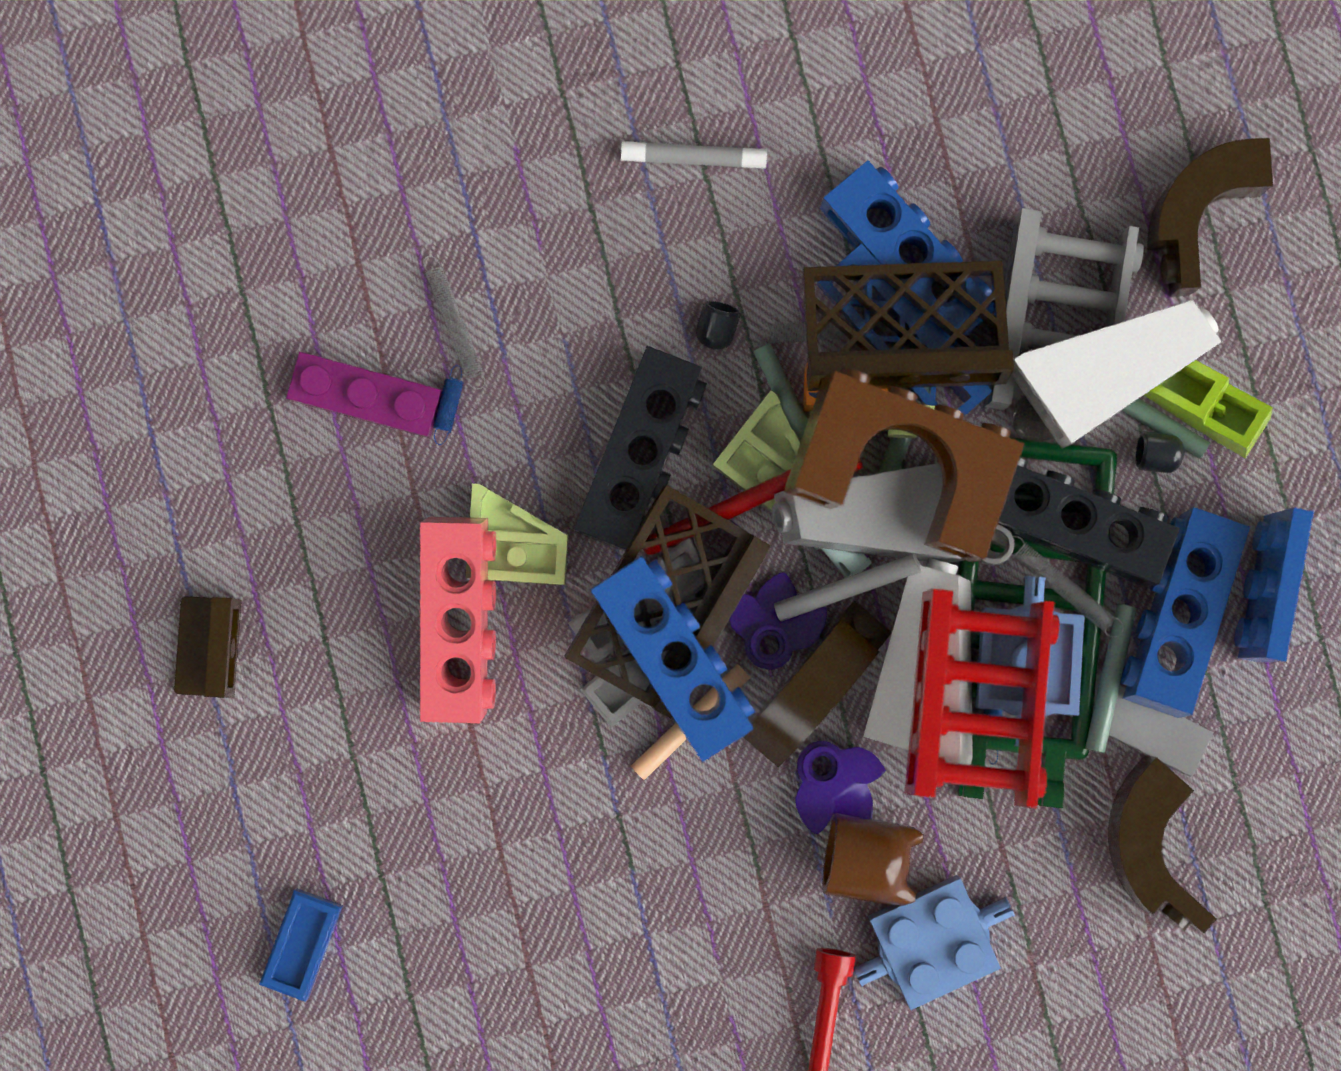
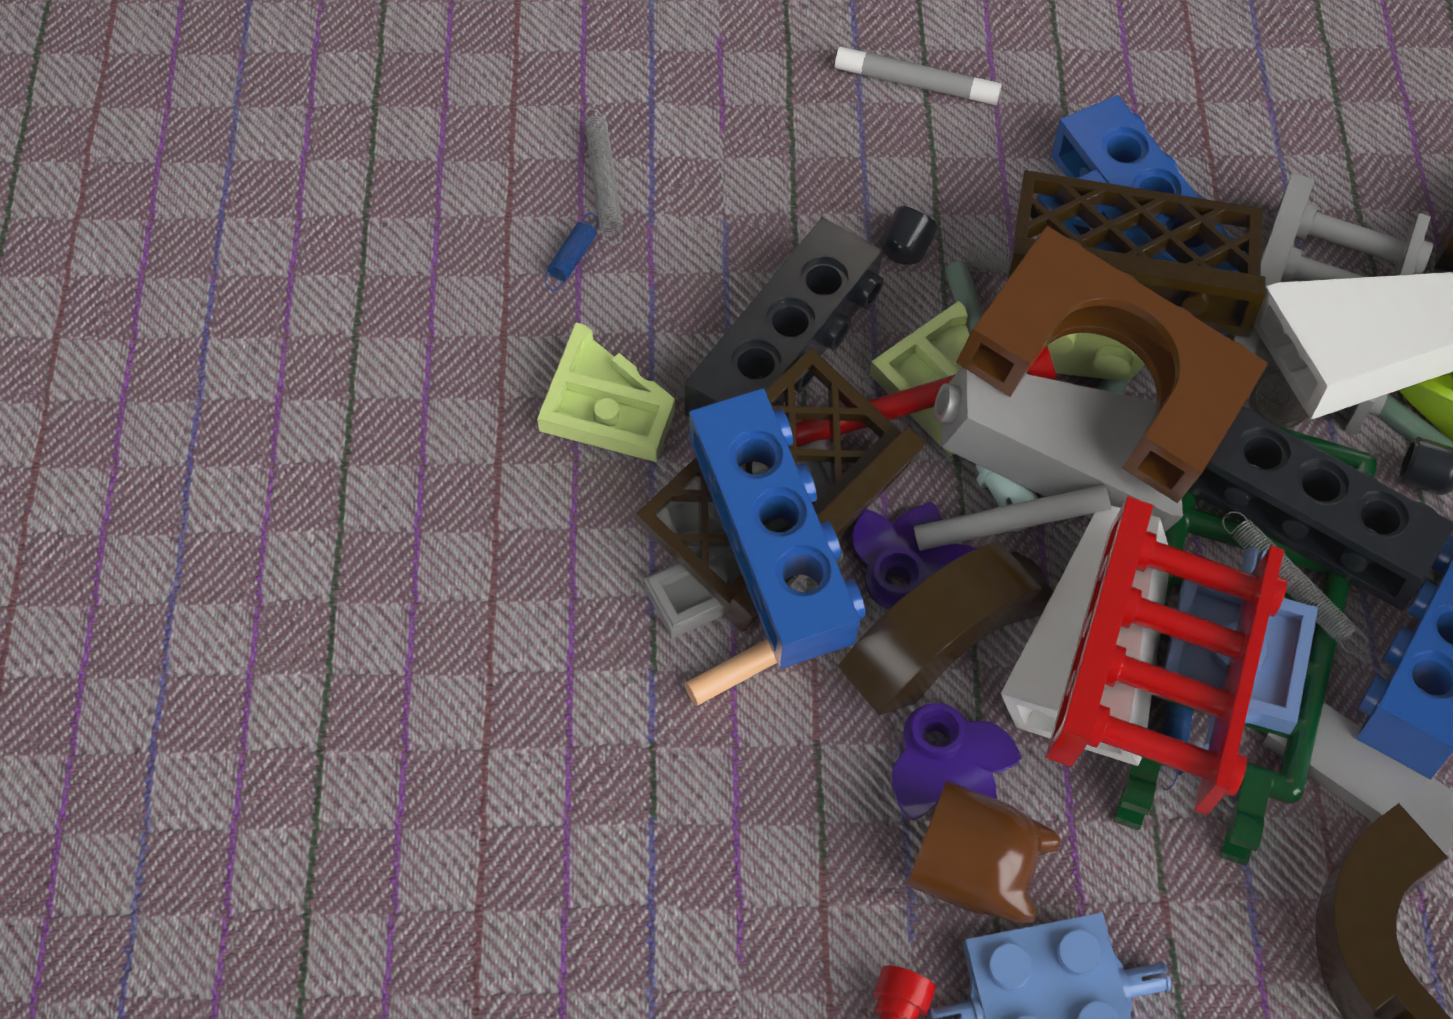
camera: 15 degrees right, 25 degrees down
(207, 646) = (203, 435): dark brown panel -> none
(301, 945) = (185, 807): blue tile -> none
(364, 395) = (477, 222): magenta plate -> none
(441, 694) = (520, 358): coral brick -> none
(1003, 539) = (1213, 505): light grey hinge -> none
(1110, 679) = (1342, 708): sand green bar -> none

